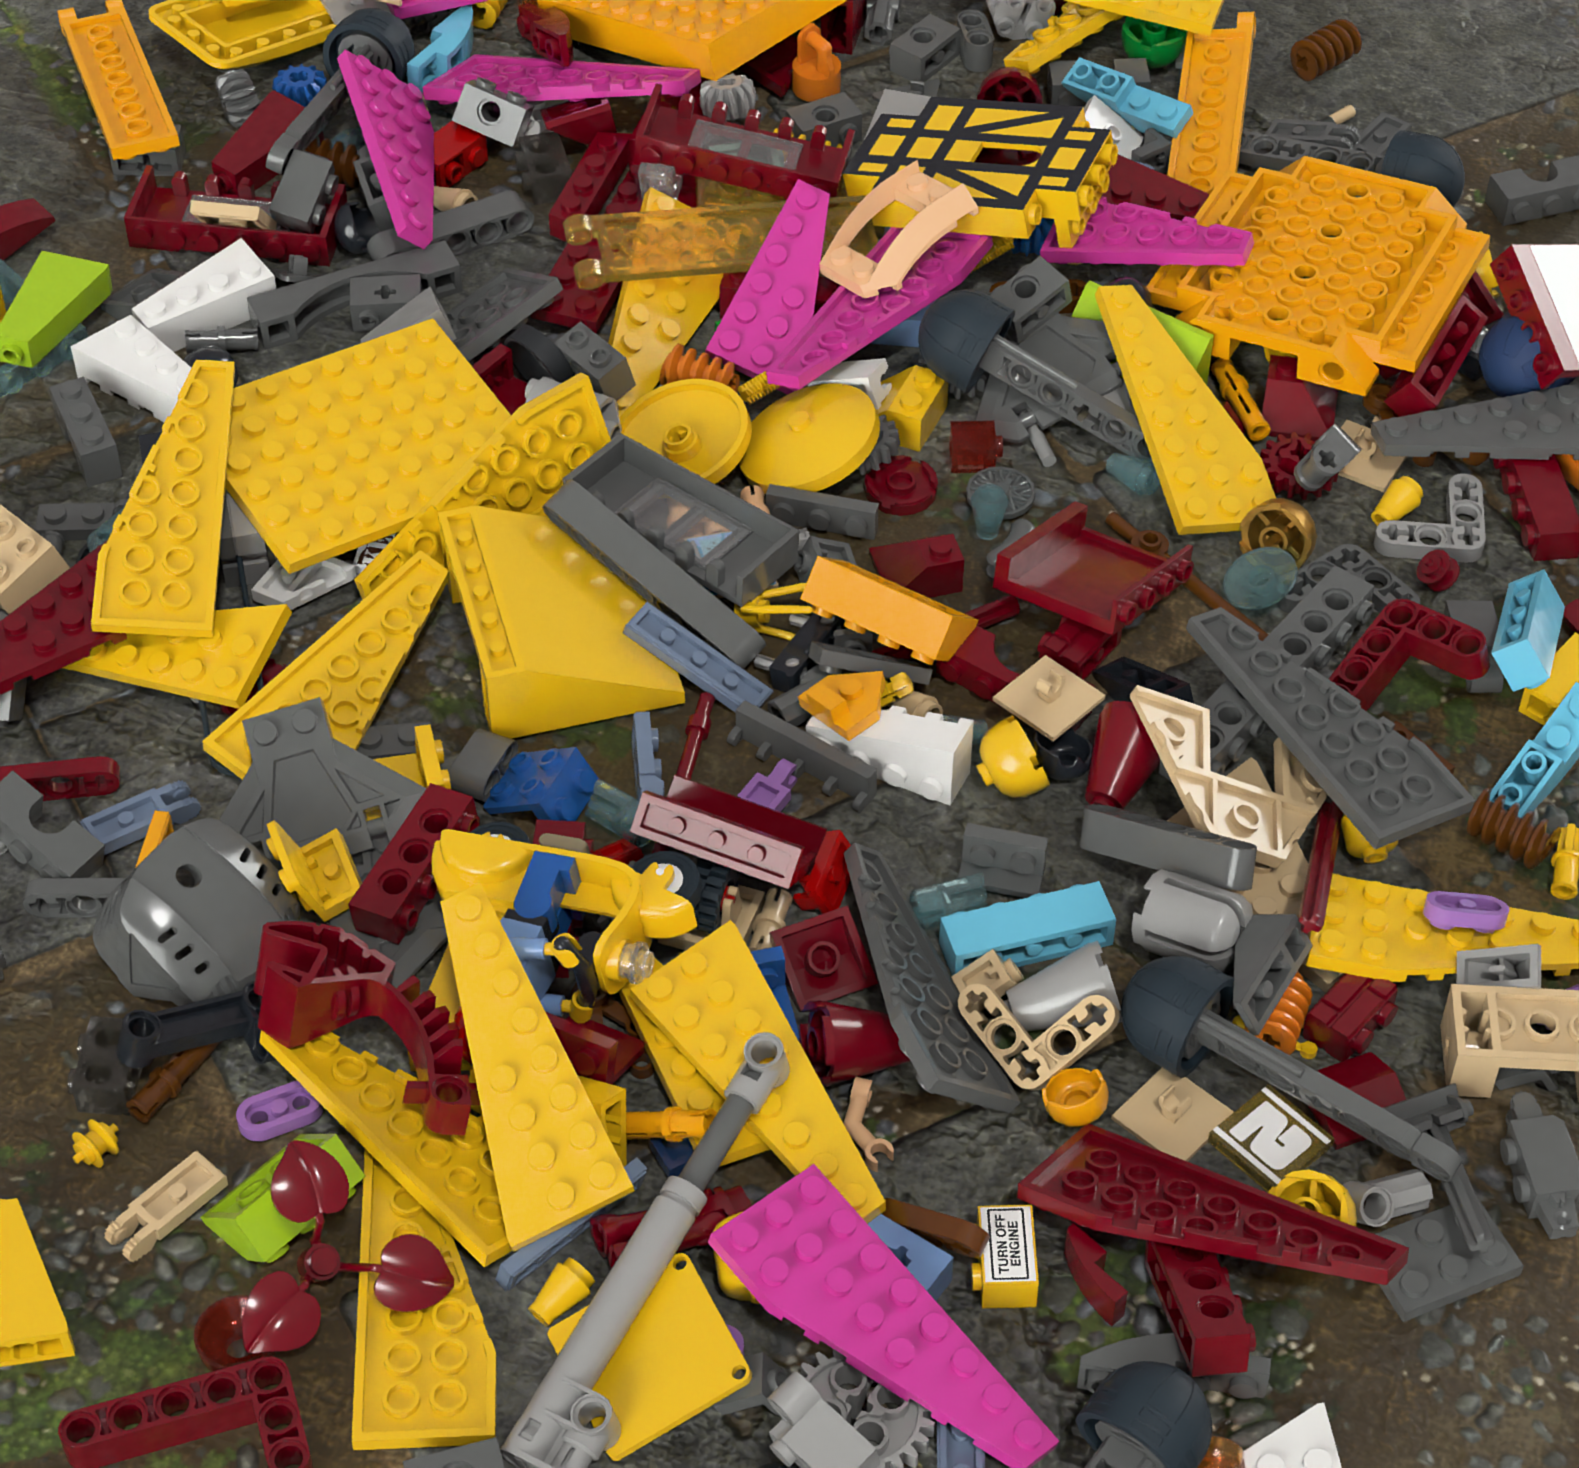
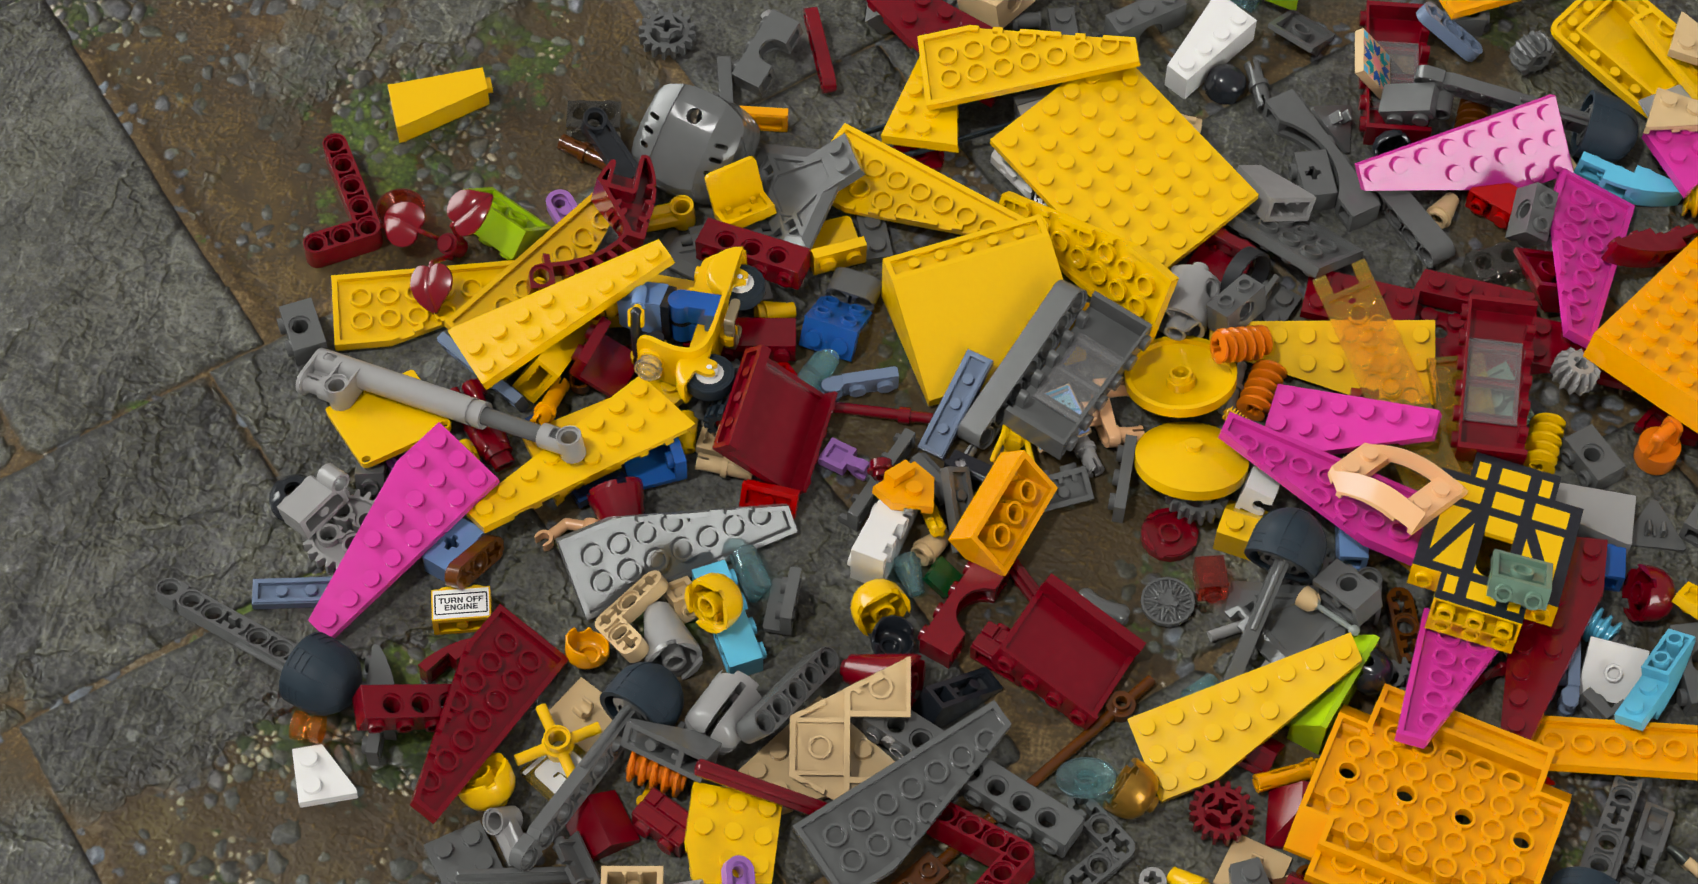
camera: 85 degrees right, 10 degrees up
(95, 1143) = (537, 124): yellow wheel -> none
(131, 818) = (785, 94): sand blue hinge -> none
(166, 1205) = (497, 167): tan hinge -> none
(184, 159) = (1449, 31): none -> sand blue beam
(206, 296) = (1296, 66): white wedge -> none
(249, 147) = (1487, 69): dark red slope -> none
(299, 83) = (1566, 90): blue gear -> none
(563, 1289) = (436, 371): yellow cone -> none
(653, 365) = (1240, 344): none -> orange piece
(660, 178) = (1450, 329): clear bracket -> none
(810, 730) = (878, 467): none -> dark red plate
(823, 958) = (696, 490): dark red slope -> none
(924, 564) = (1081, 548): dark red slope -> none
(962, 700) = (941, 576): none -> dark green tile
(988, 508) = (1132, 585): clear light blue cone -> none
(1030, 911) = (714, 601): none -> yellow cylinder
(1032, 338) = (1310, 600): none -> hinge
(1049, 698) = (933, 623): tan piece -> none
(1058, 119) = (1520, 580): none -> sand green plate
(1239, 1139) = (556, 733): none -> yellow bar
(1326, 458) = (1213, 822): dark grey piece -> none

